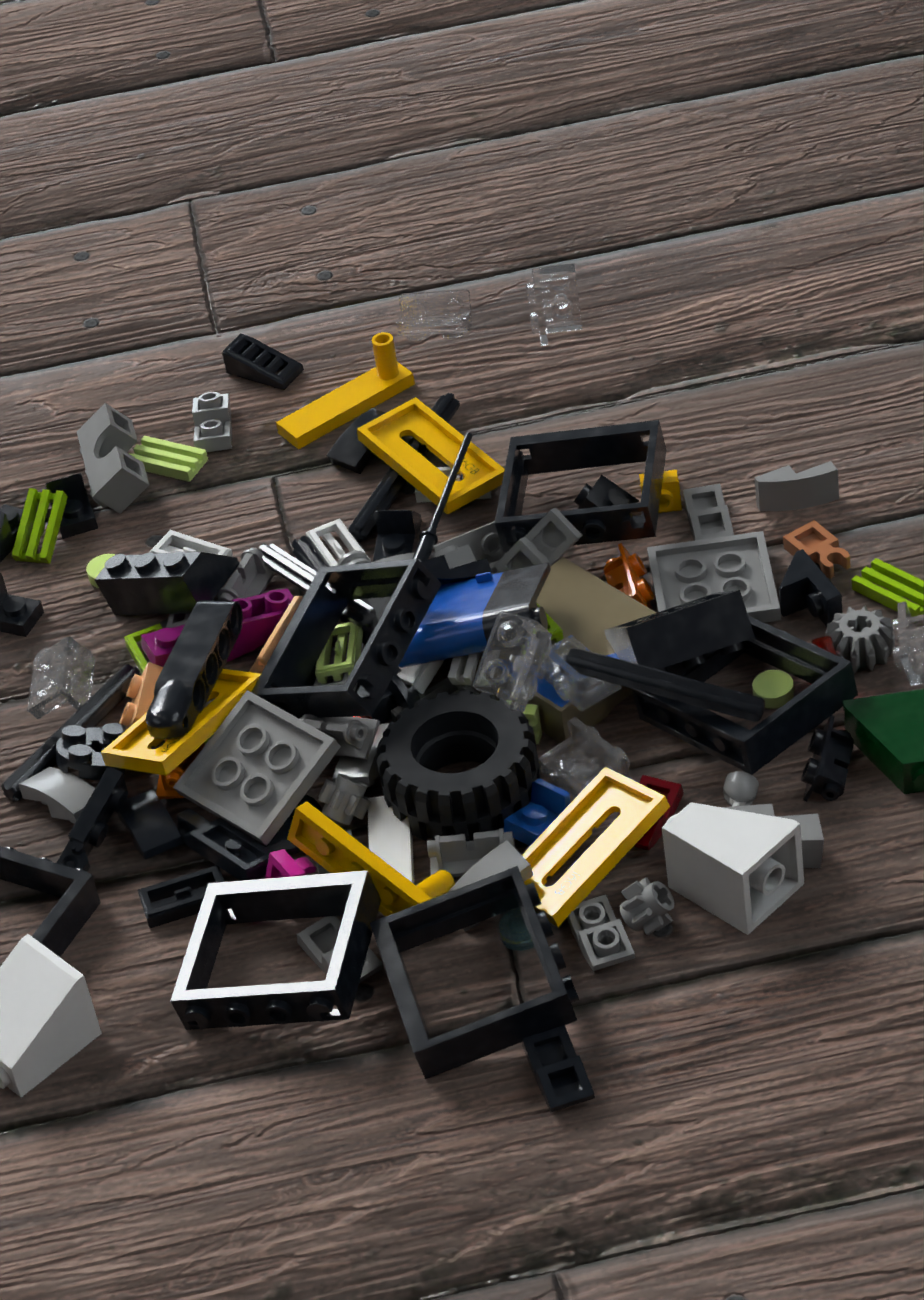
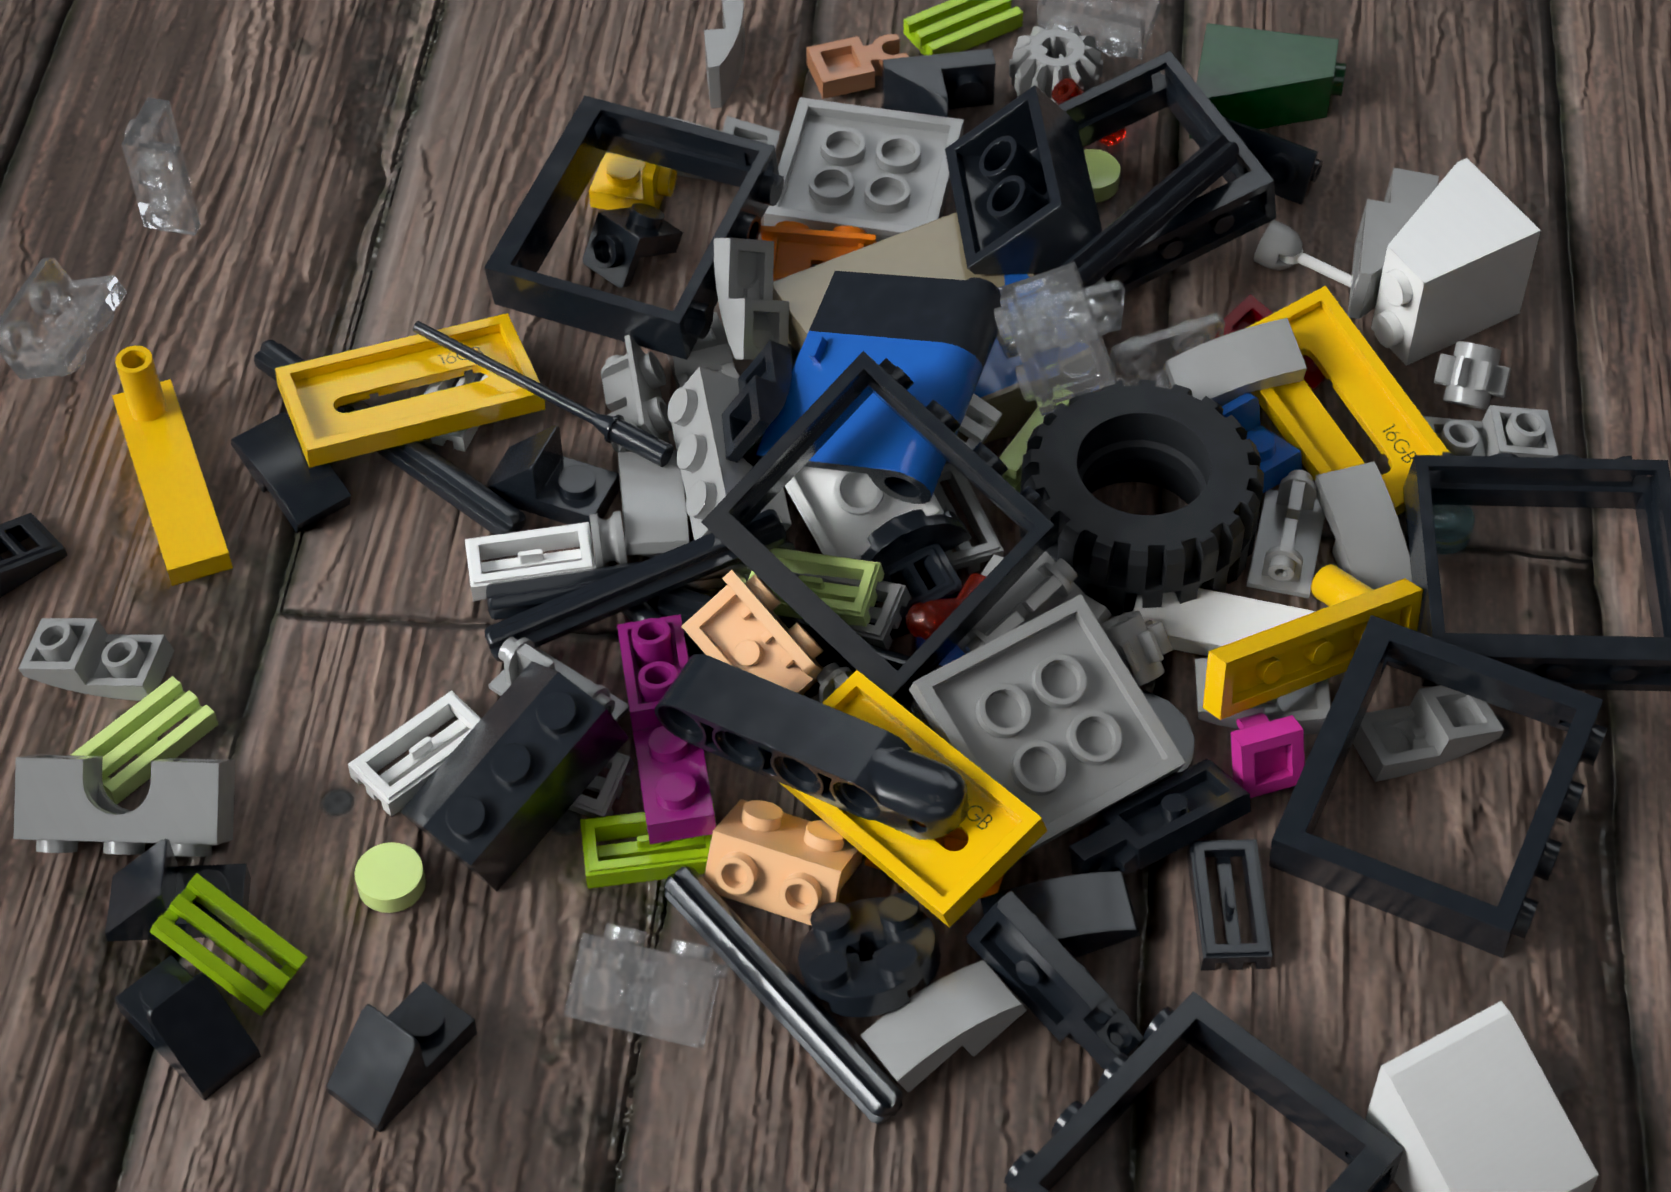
camera: 80 degrees left, 10 degrees up
(586, 781) = (1240, 363): none -> light grey slope

